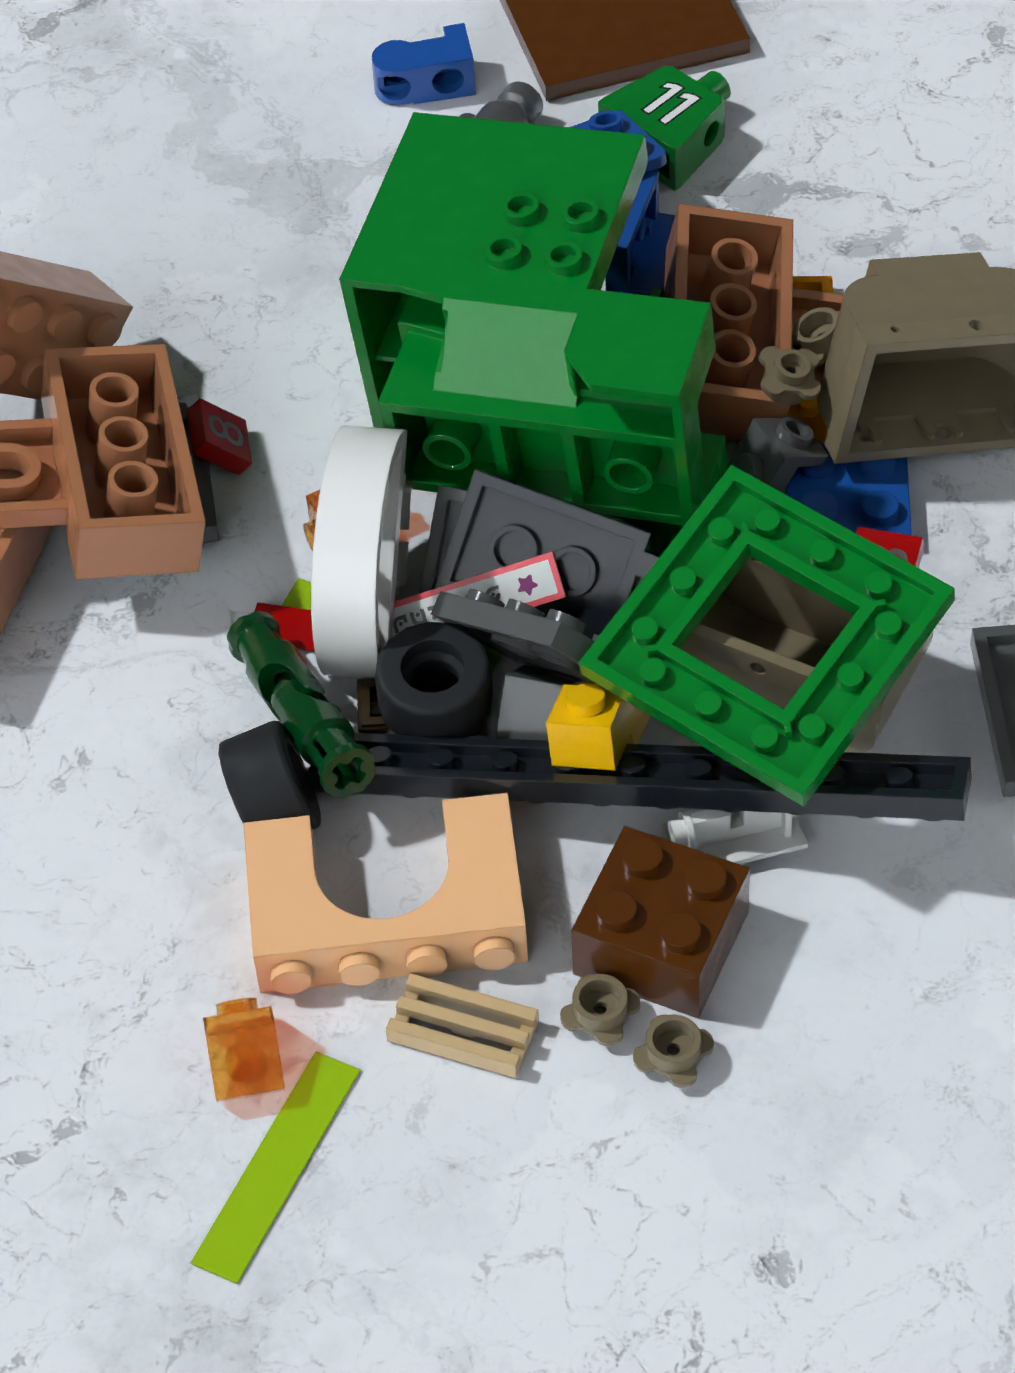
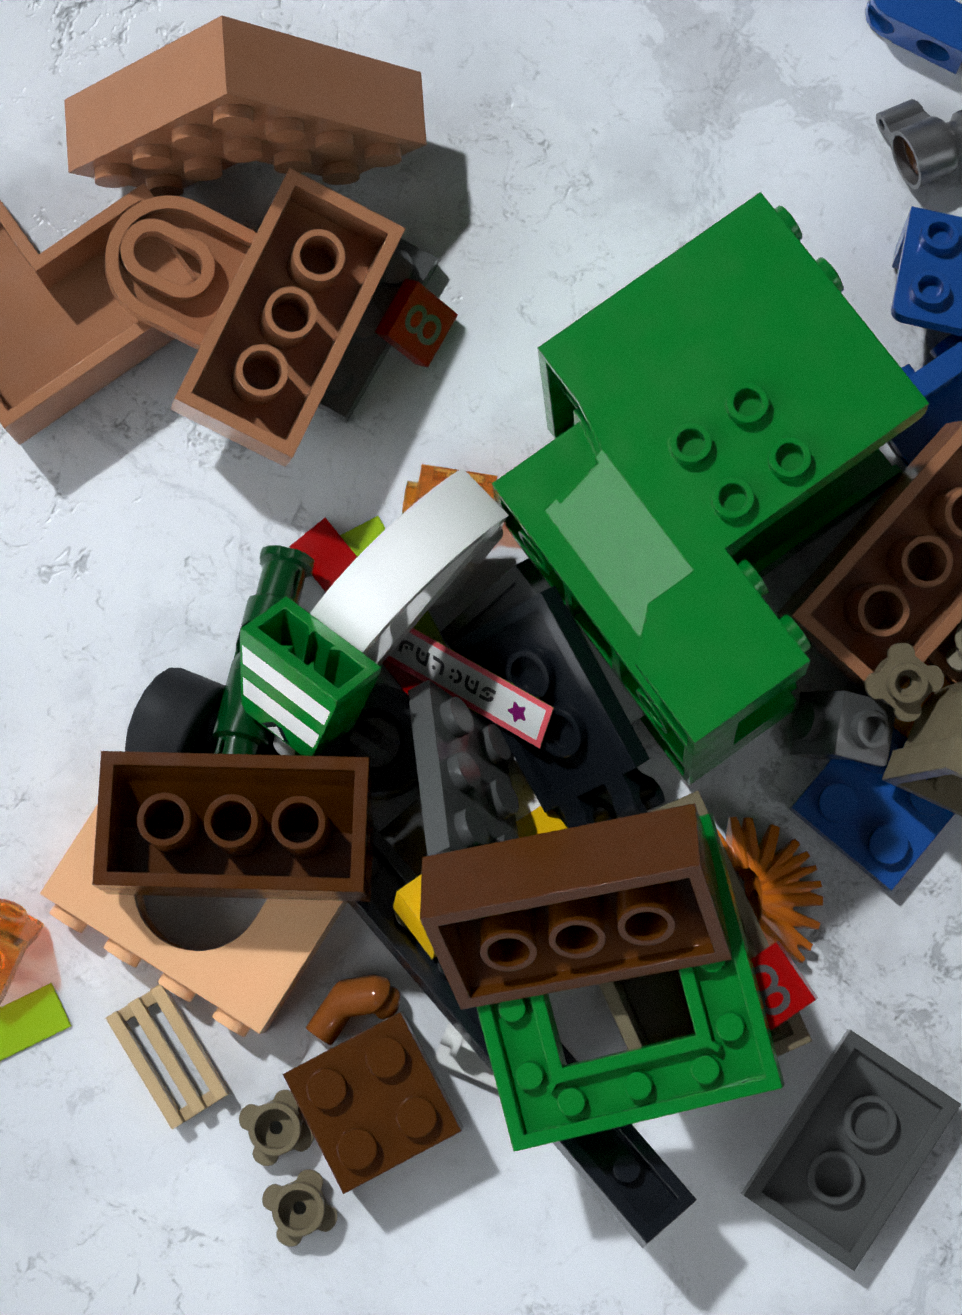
camera: 40 degrees right, 30 degrees up
(347, 638) = (302, 679): none -> green torso
(379, 770) = (234, 826): none -> reddish brown slope
(575, 880) = (353, 998): none -> dark orange arm
(694, 579) = (574, 907): none -> reddish brown slope

